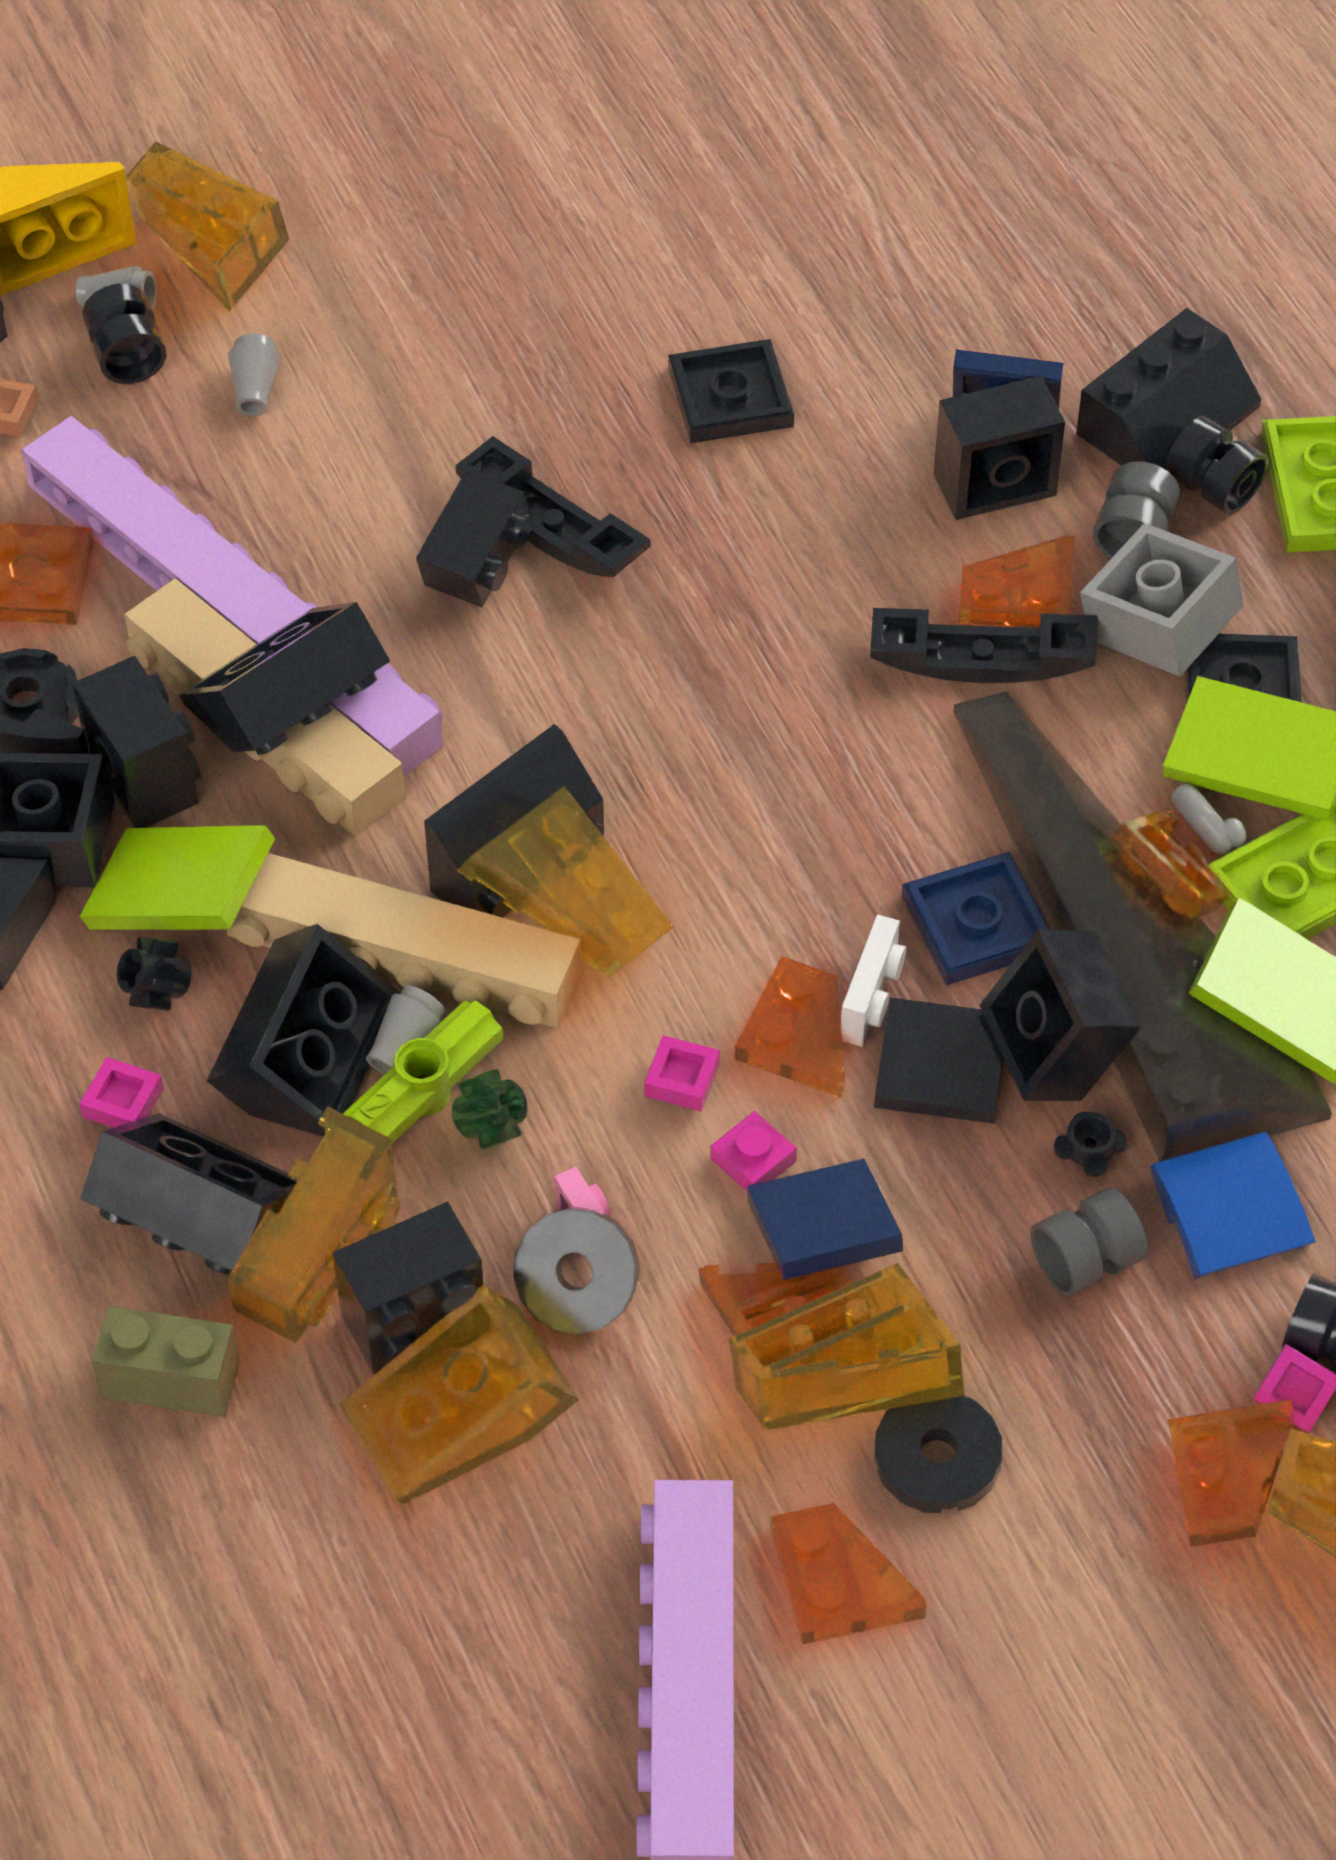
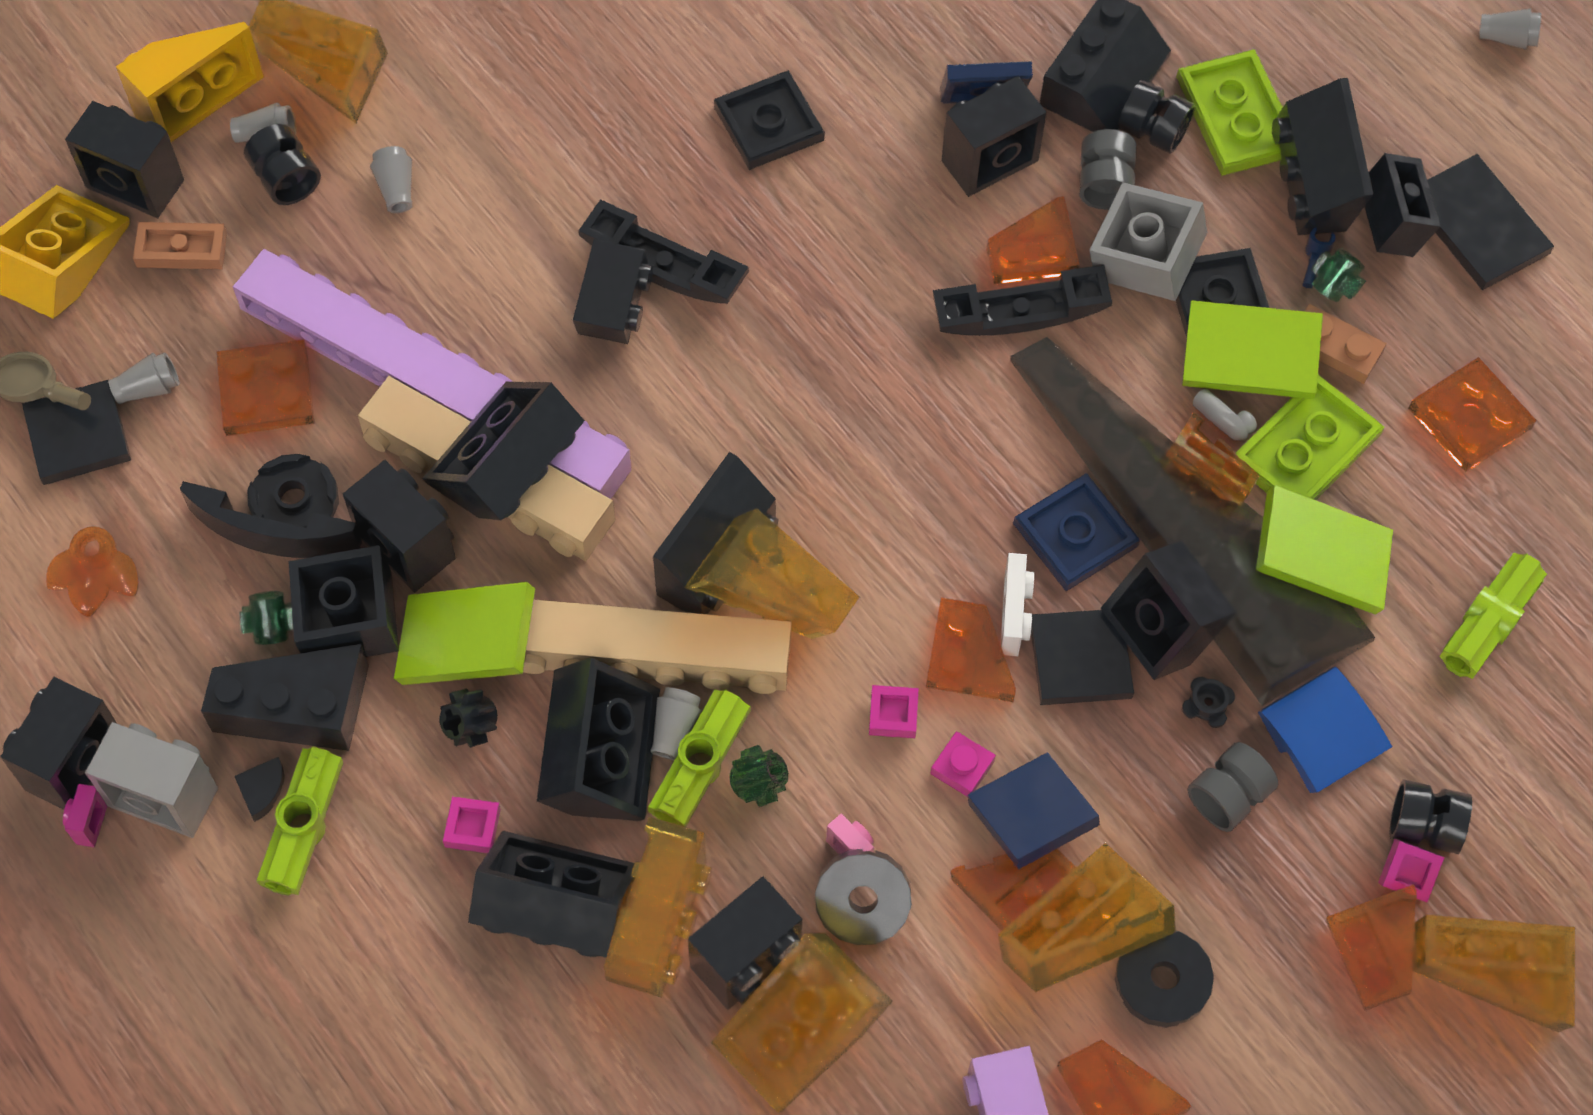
camera: 15 degrees left, 10 degrees up
(166, 1361) = (572, 1042): olive brick -> none

